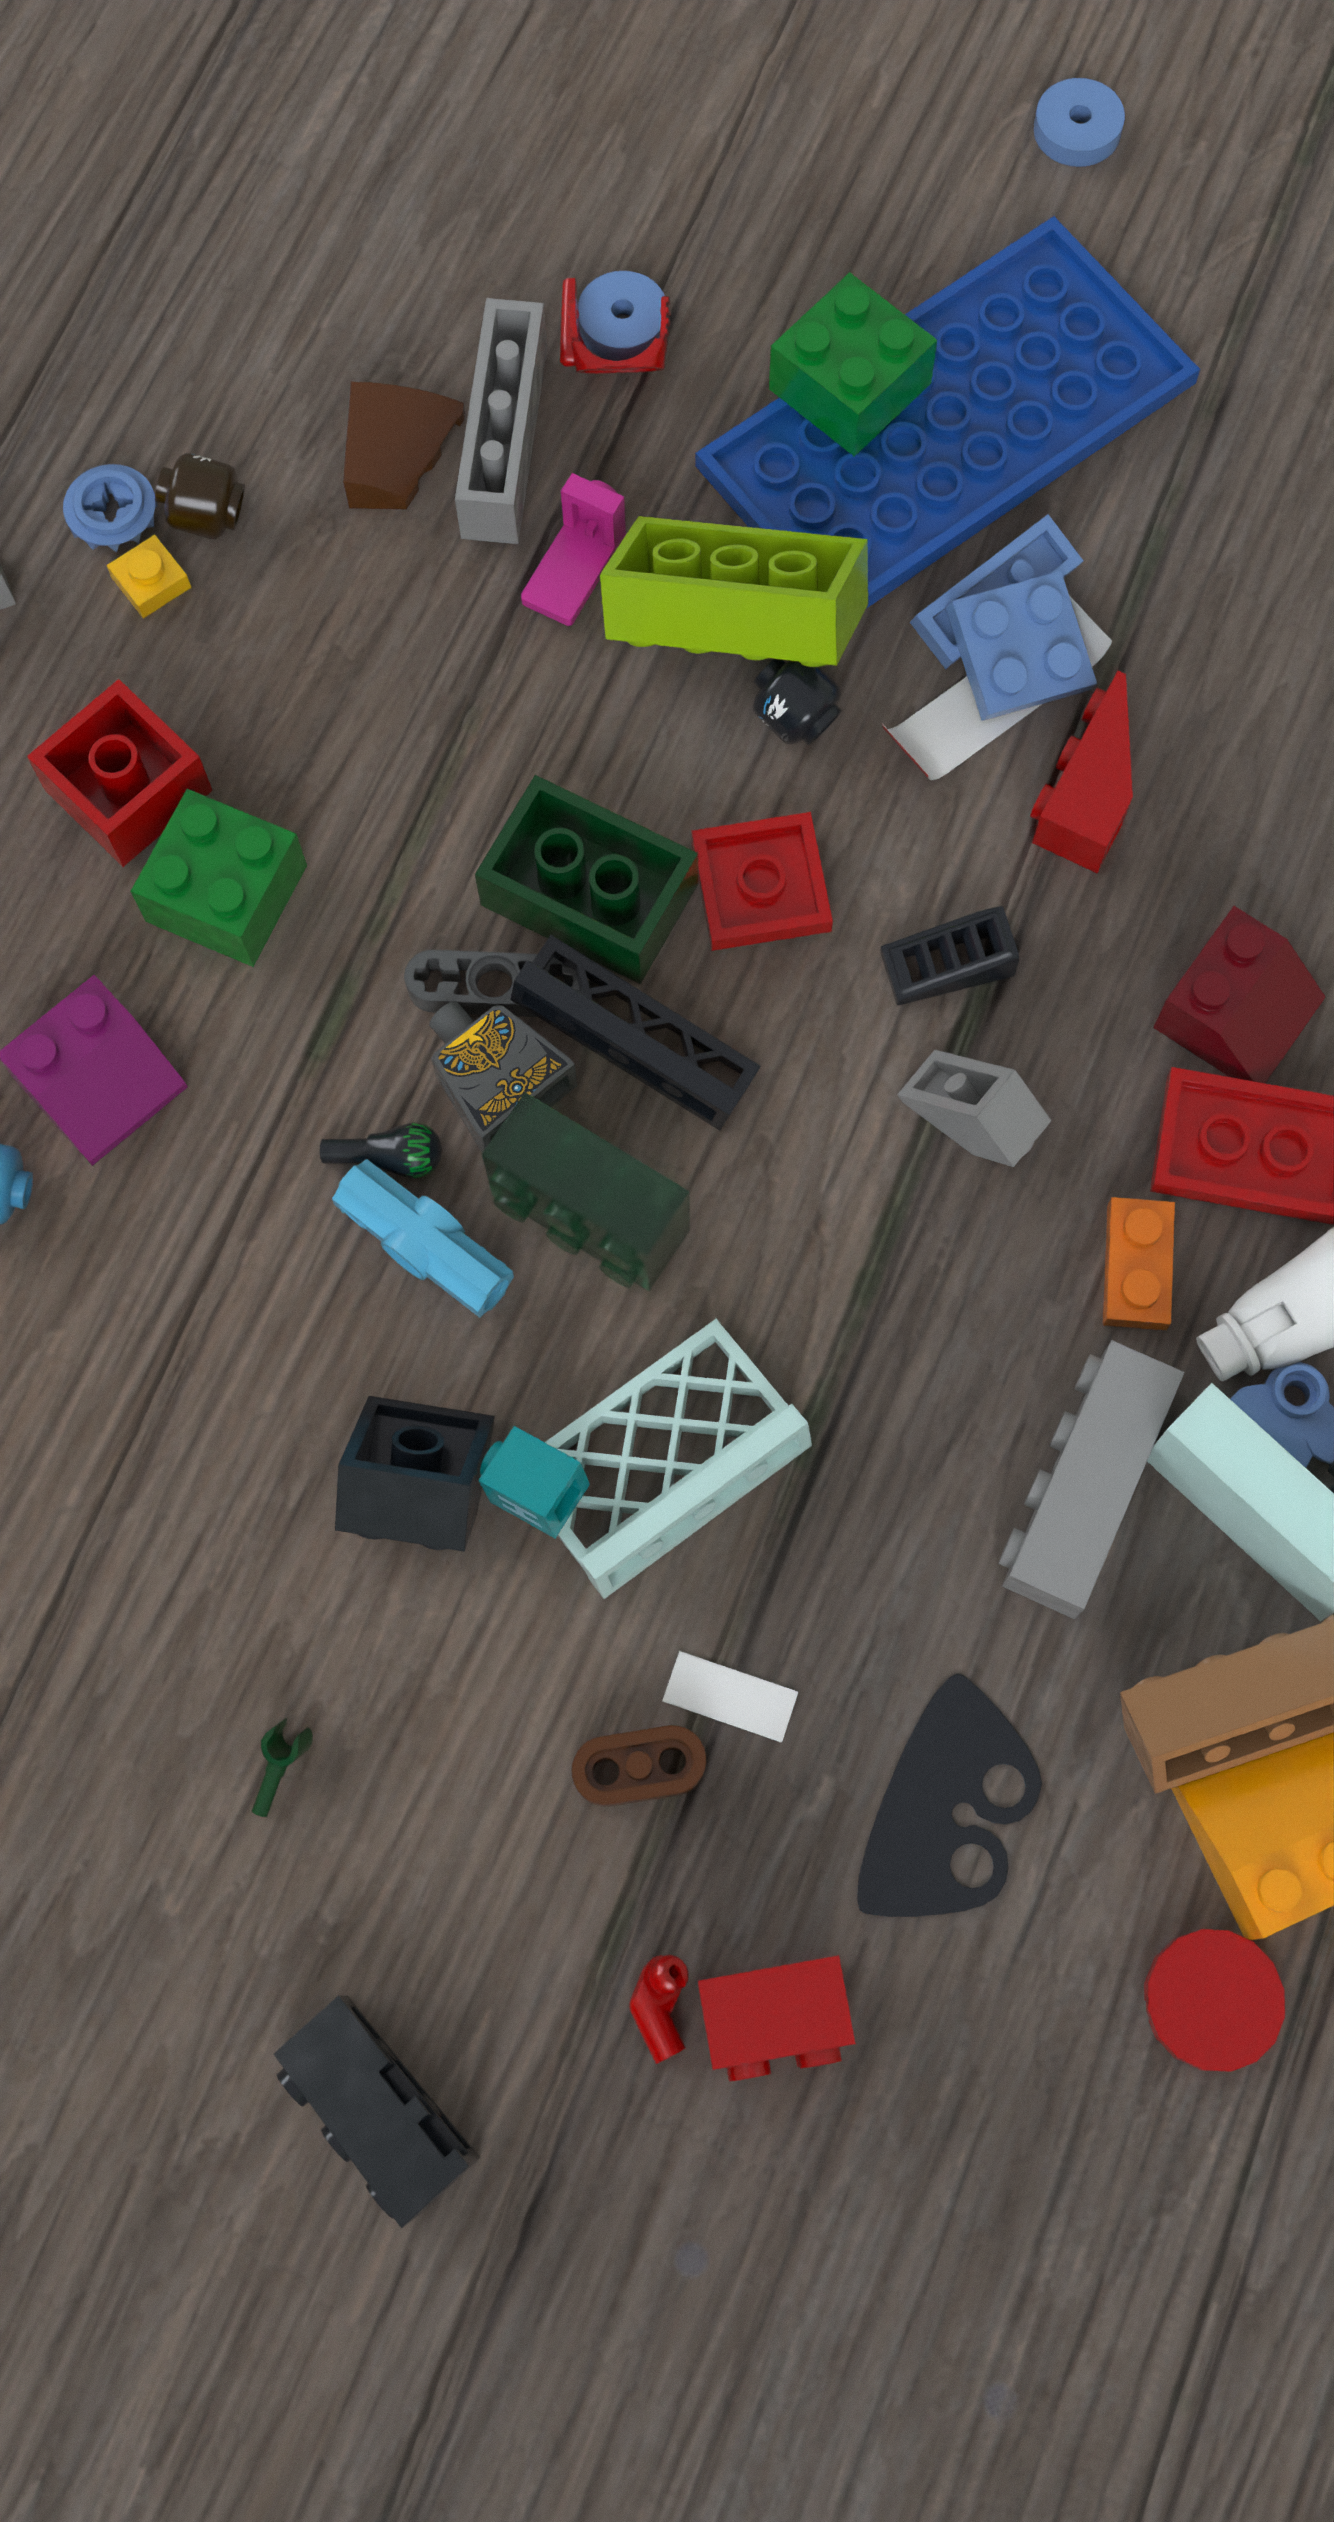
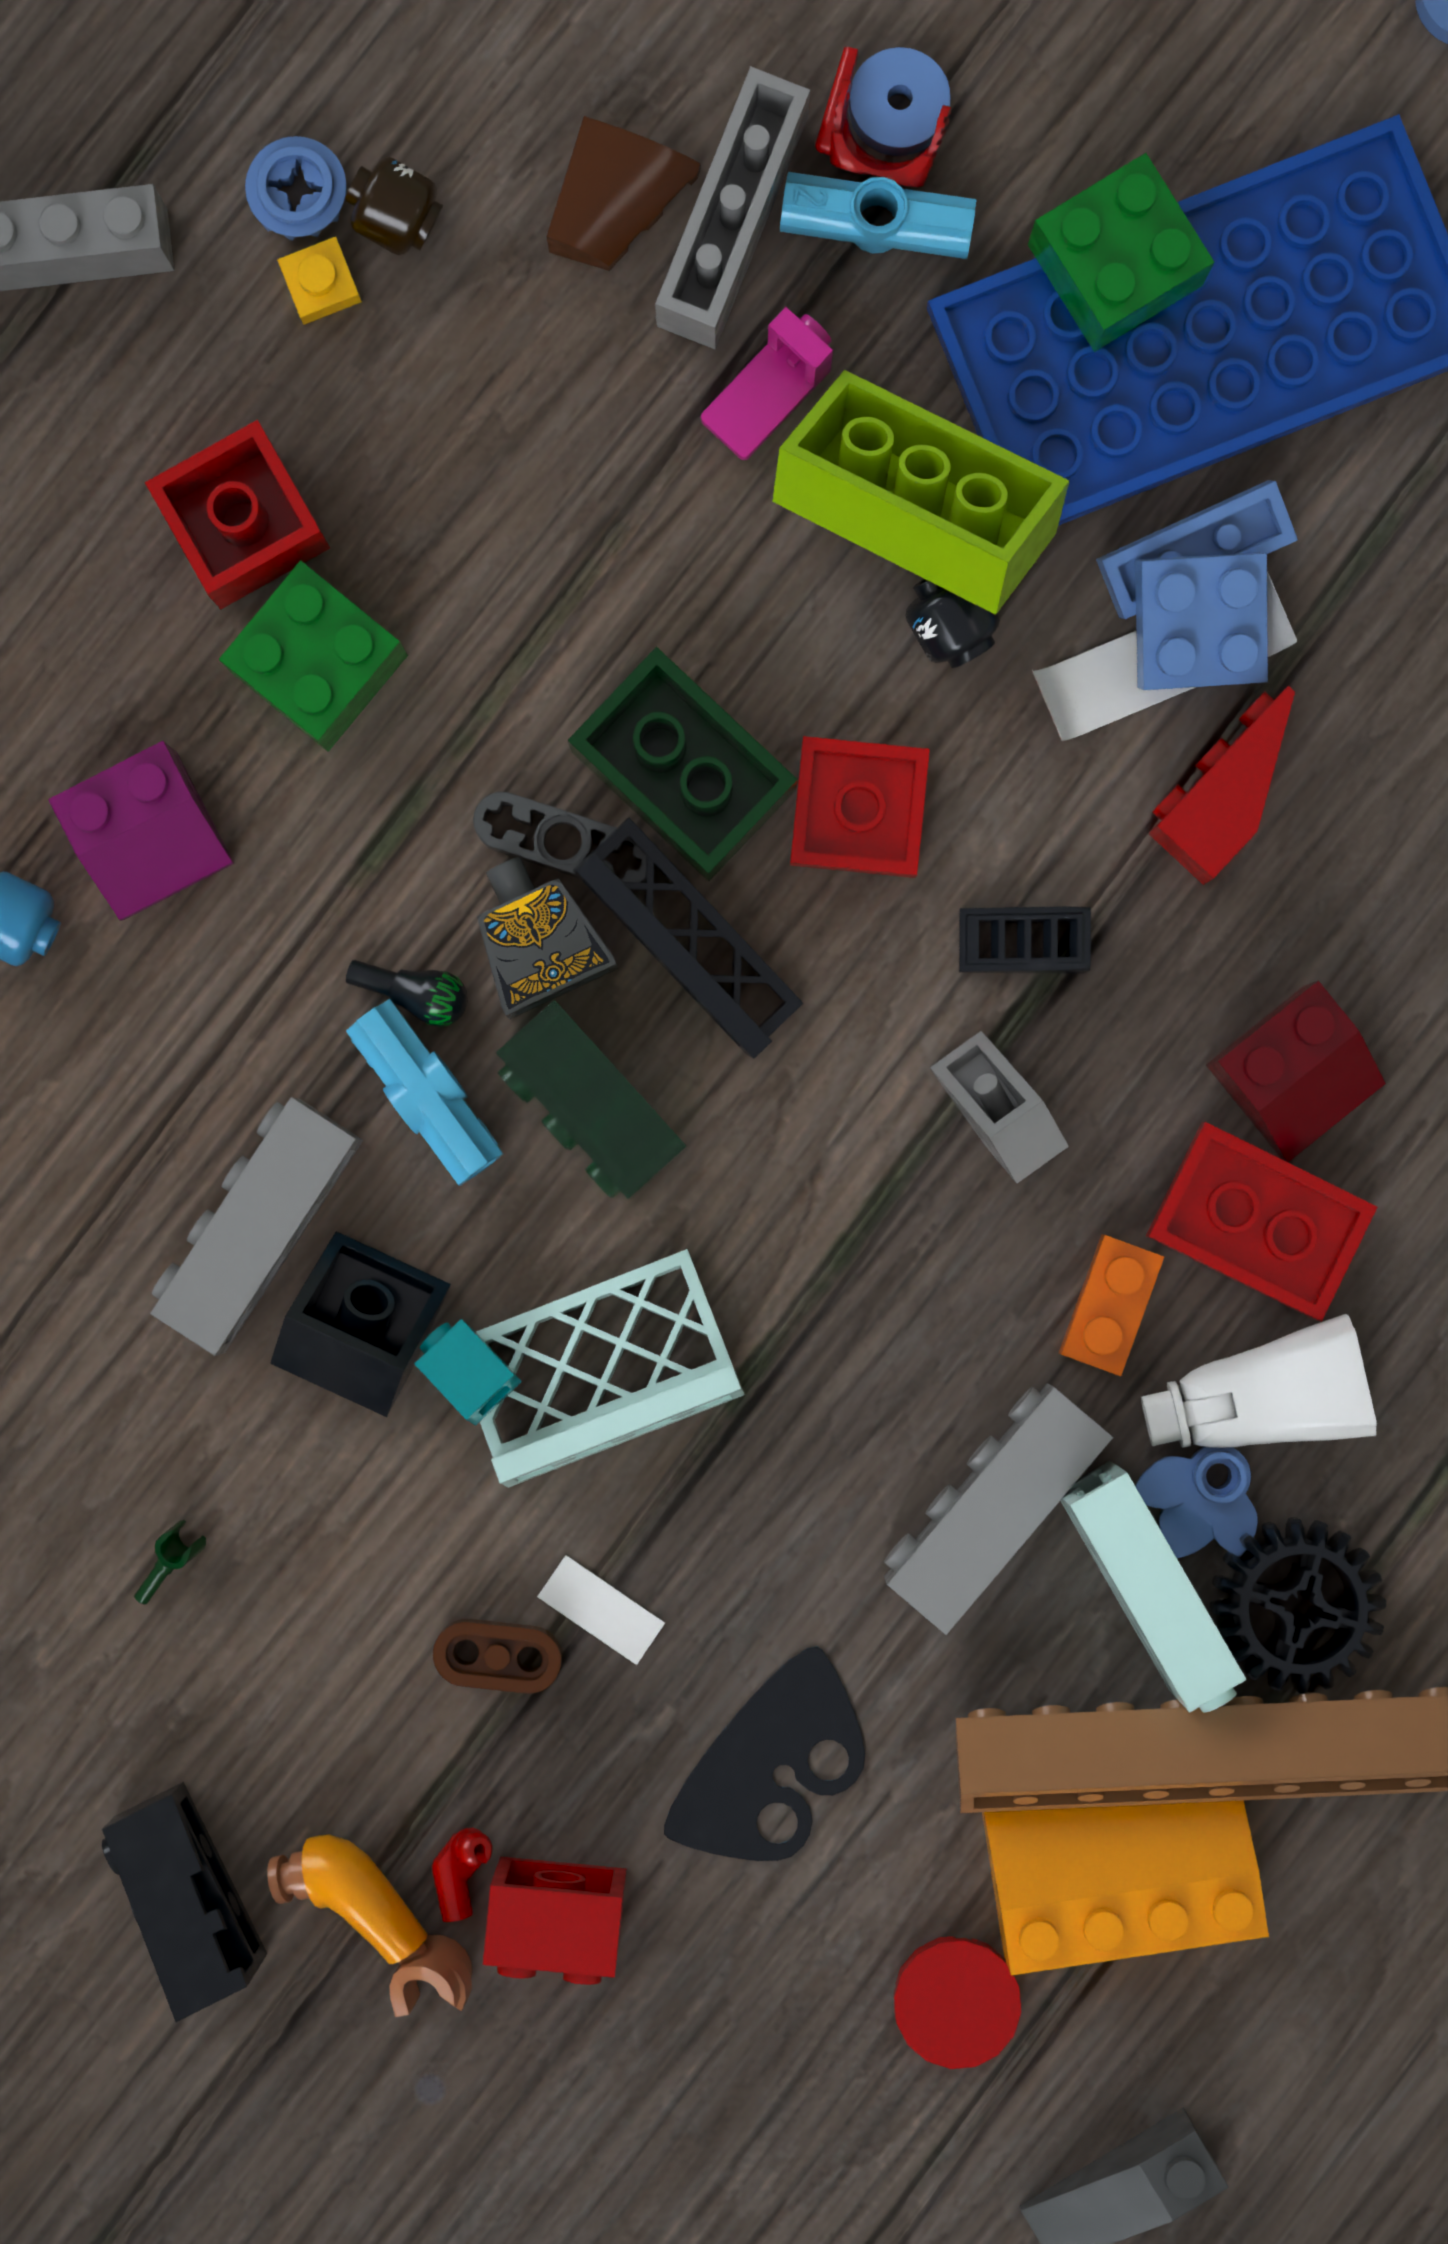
camera: 15 degrees right, 15 degrees up
(287, 1405) = (254, 1226): none -> light grey brick
(550, 2045) = (350, 1883): none -> piece
(658, 396) = (920, 223): none -> medium azure piece

